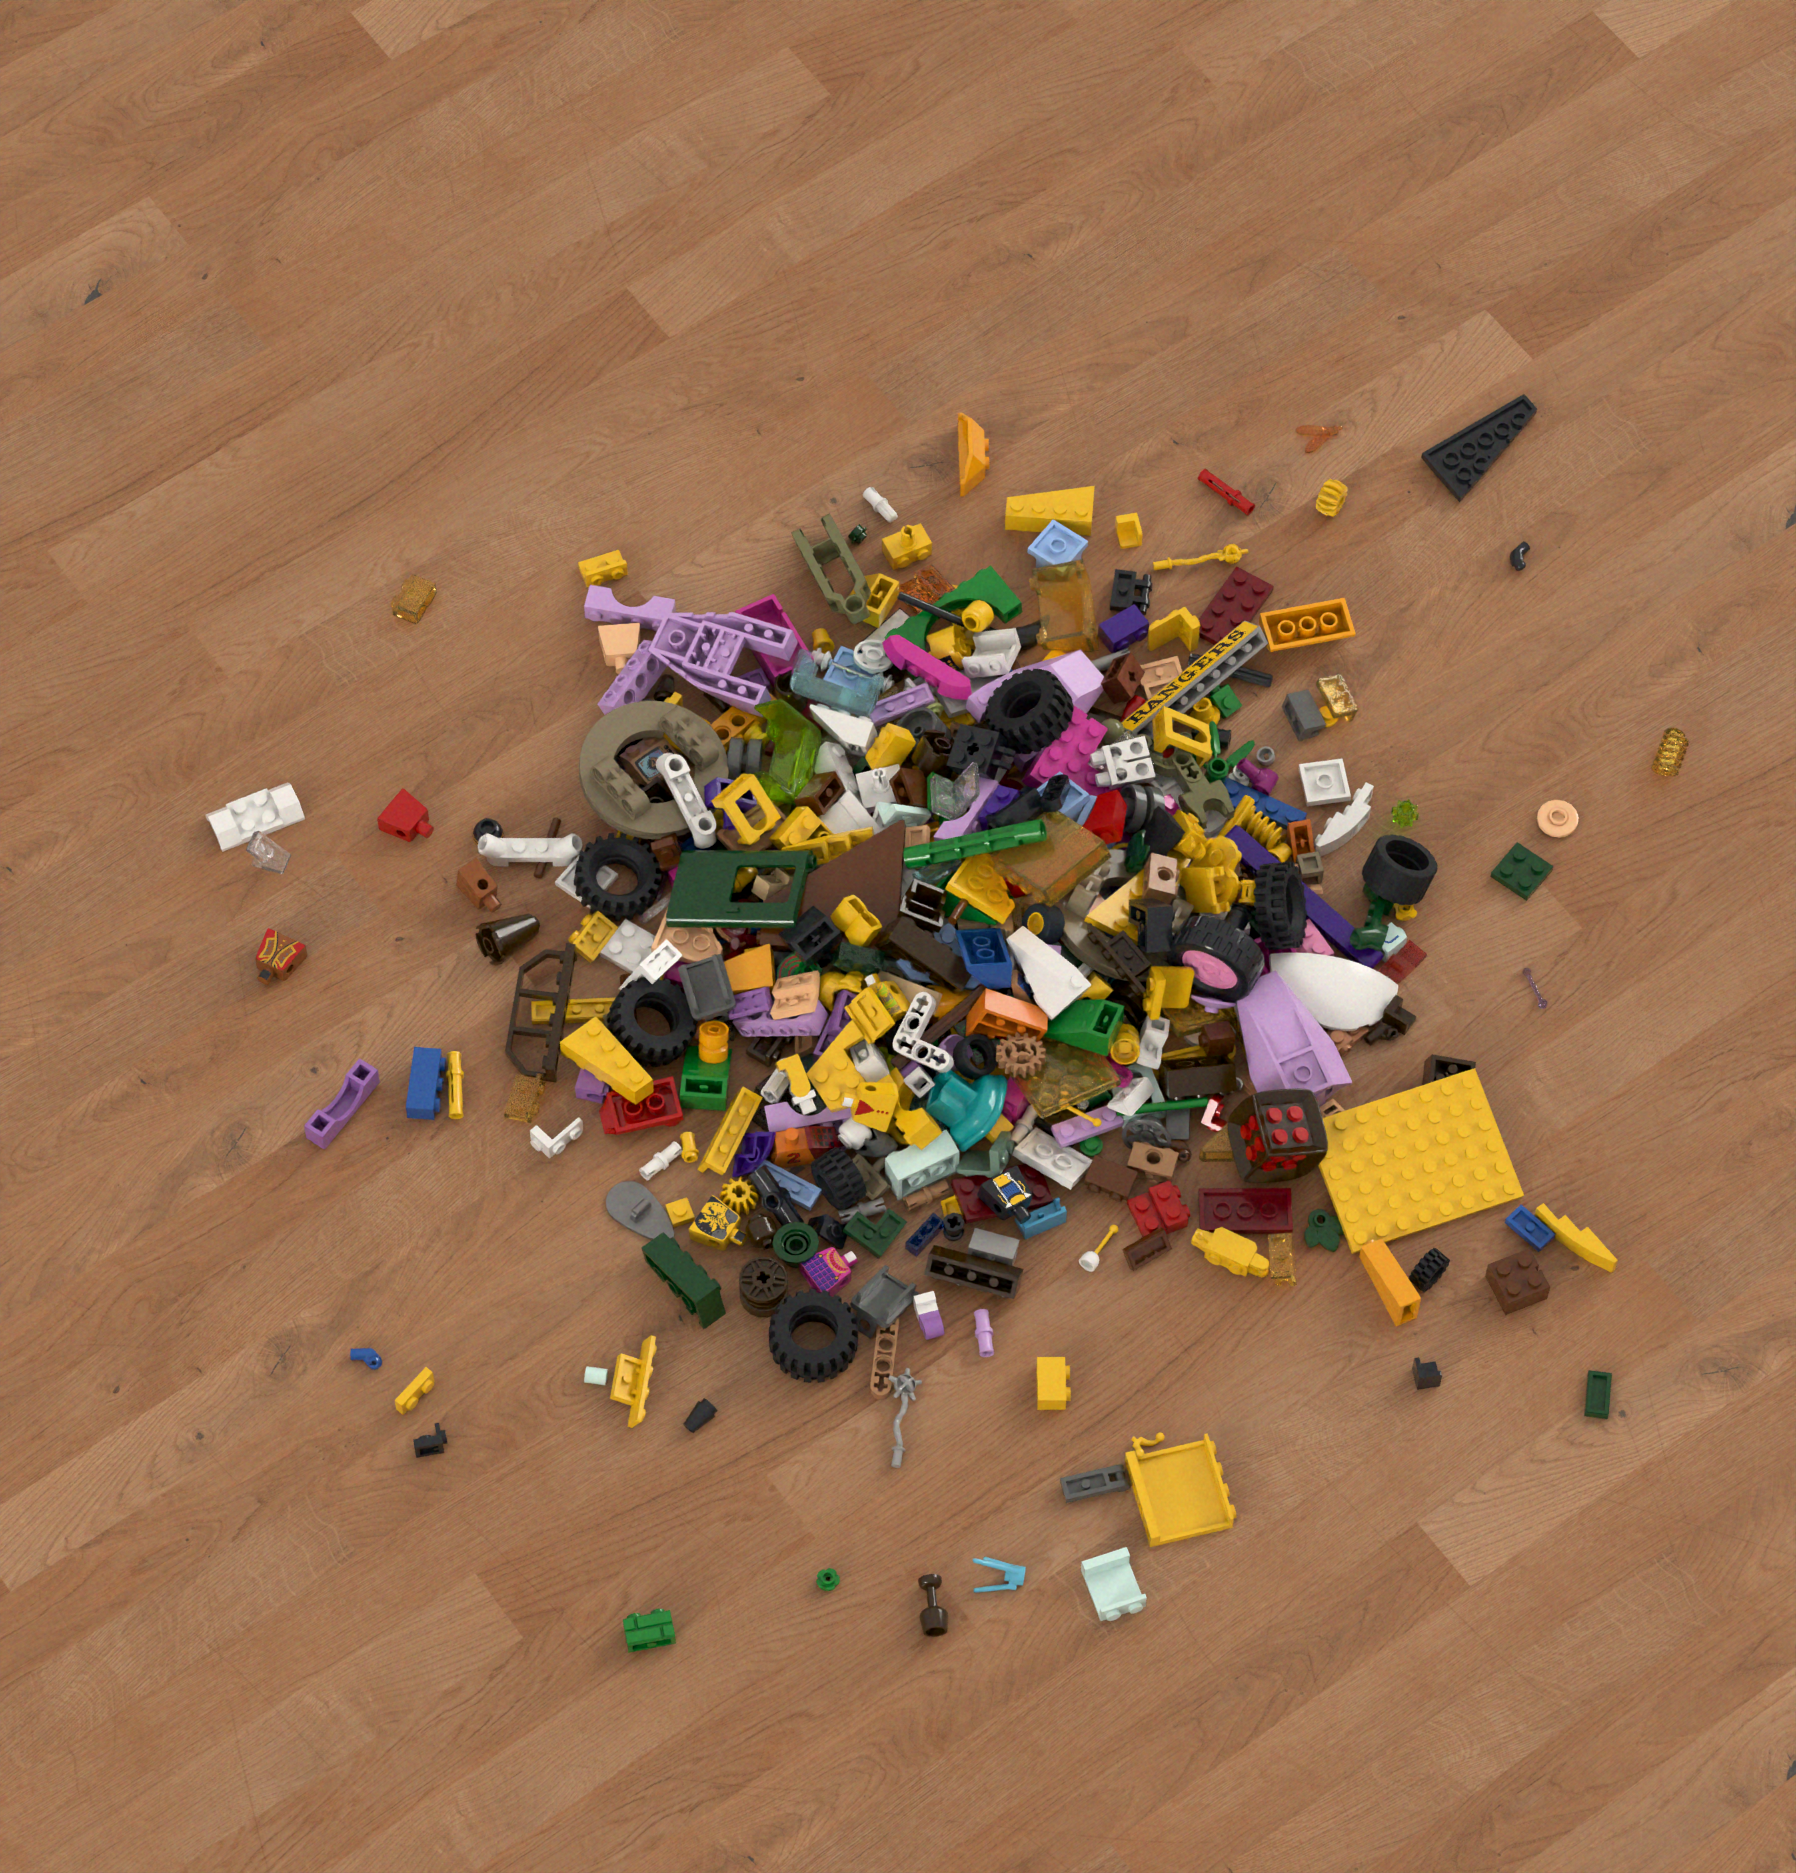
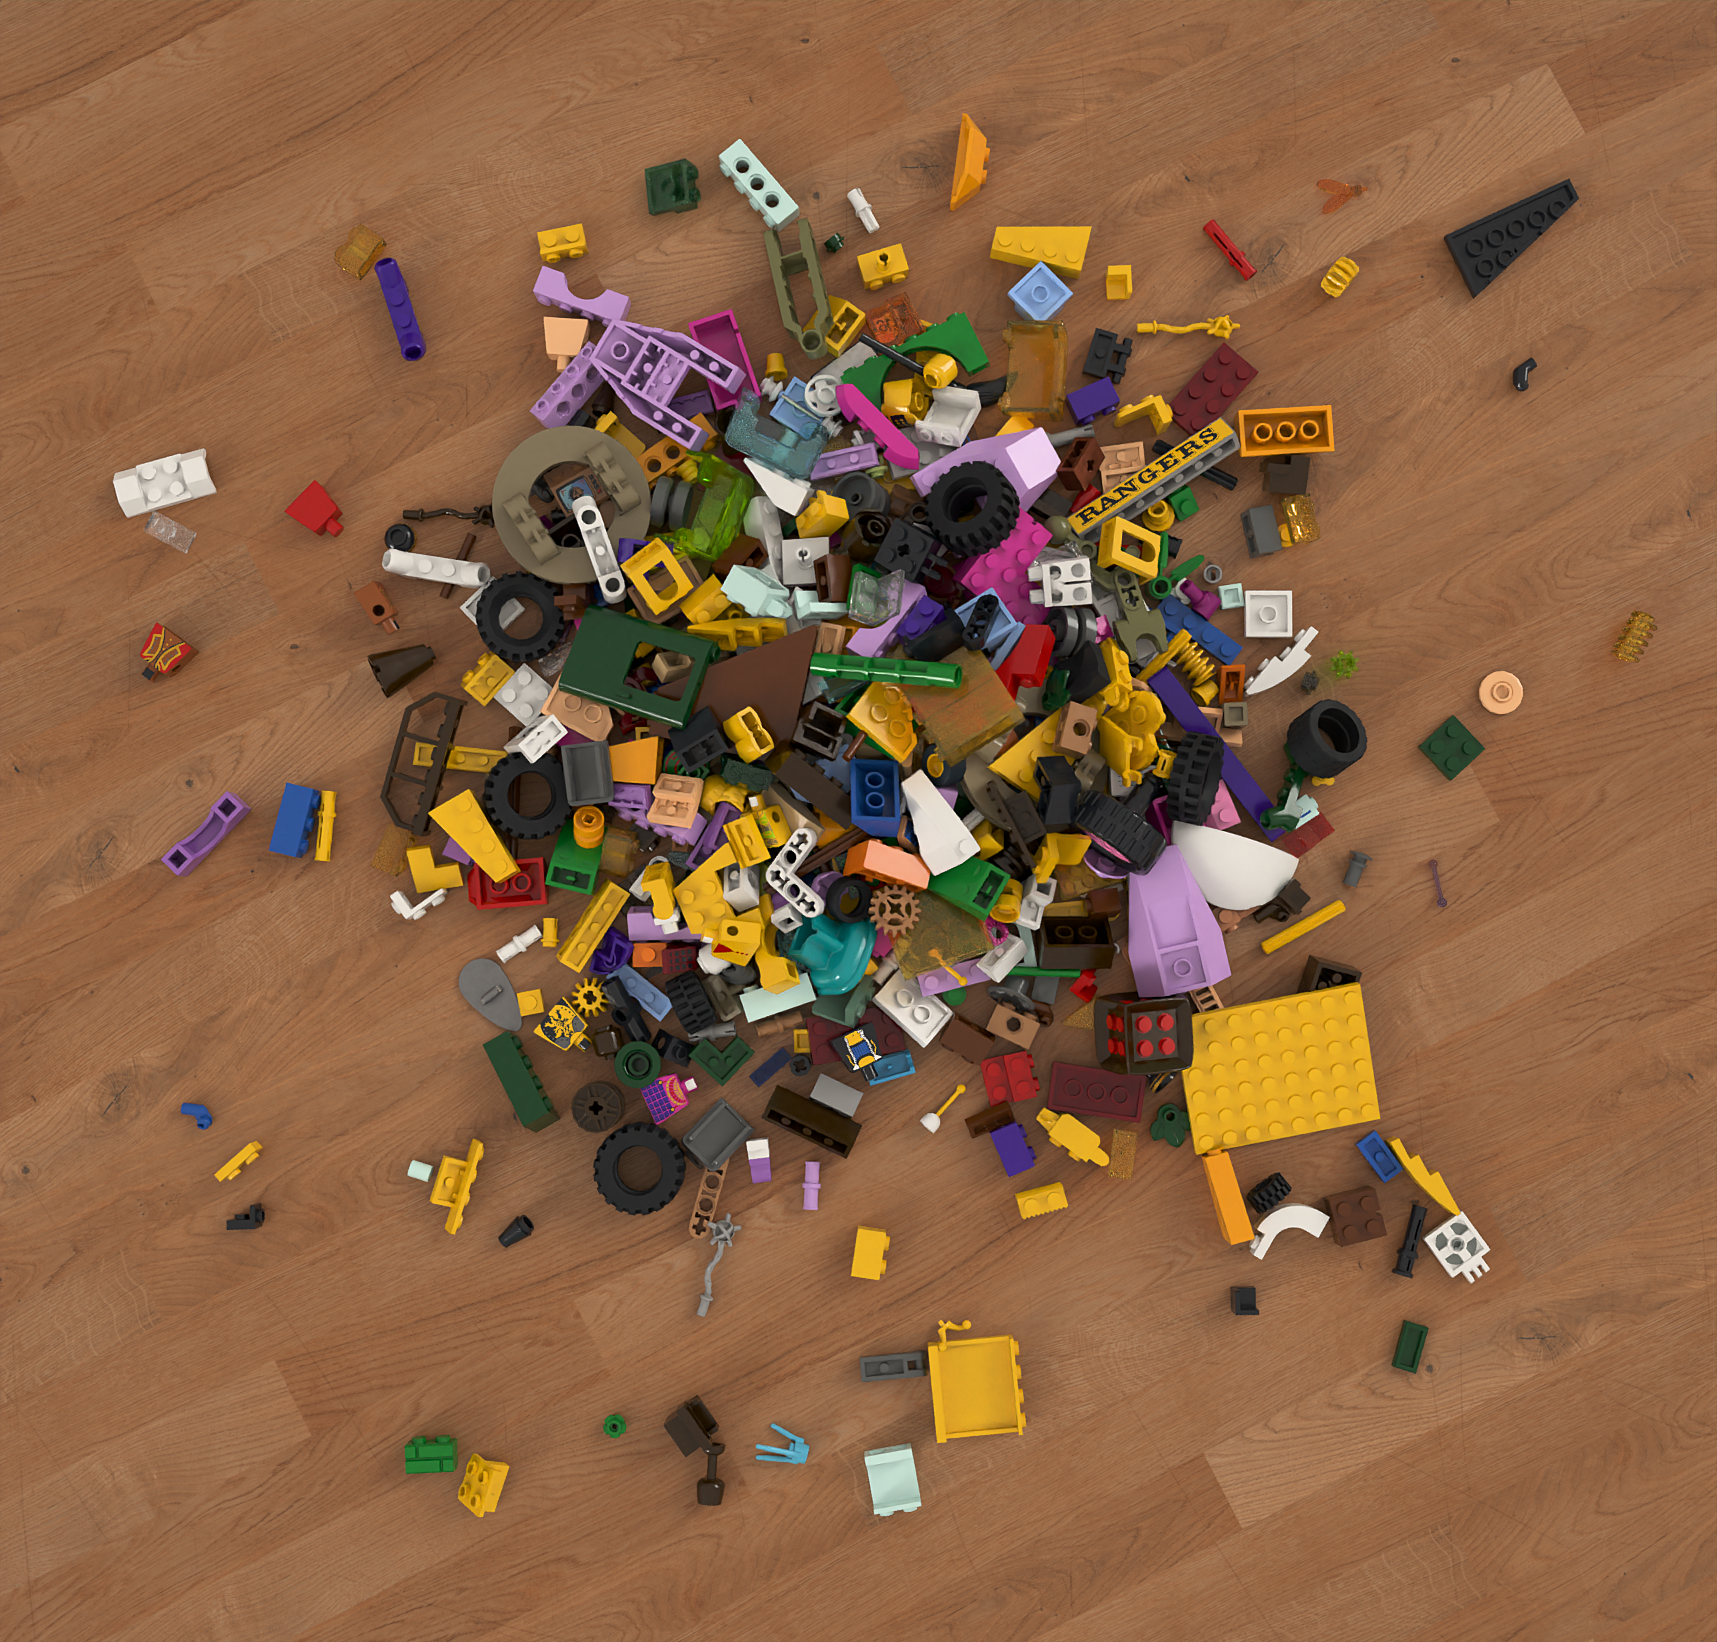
camera: 10 degrees right, 25 degrees up
(460, 640) = (400, 309): none -> dark purple plate
(563, 1113) = (430, 876): none -> yellow tile
(569, 799) = (482, 515): none -> dark brown piece
(699, 508) = (672, 187): none -> clear green plate
(705, 1649) = (482, 1484): none -> yellow bracket
(744, 1063) = (618, 852): none -> clear yellow brick
(757, 475) = (739, 156): none -> light aqua brick
(841, 808) = (757, 592): none -> light aqua hinge
(902, 1562) = (691, 1426): none -> dark brown plate
(1173, 1270) = (1012, 1148): none -> dark purple brick
(1210, 1311) = (1041, 1200): none -> yellow brick
(1287, 774) = (1231, 596): none -> light aqua tile
(1305, 1187) = (1160, 1081): none -> black piece
(1314, 661) = (1286, 477): none -> dark brown plate
(1375, 831) = (1310, 682): none -> clear smoke plate
(1414, 1041) = (1303, 926): none -> yellow axle
(1453, 979) = (1356, 868): none -> dark grey pin
(1454, 1291) = (1285, 1217): none -> white arch
(1576, 1308) = (1408, 1252): none -> black pin
(1624, 1297) = (1458, 1247): none -> white piece

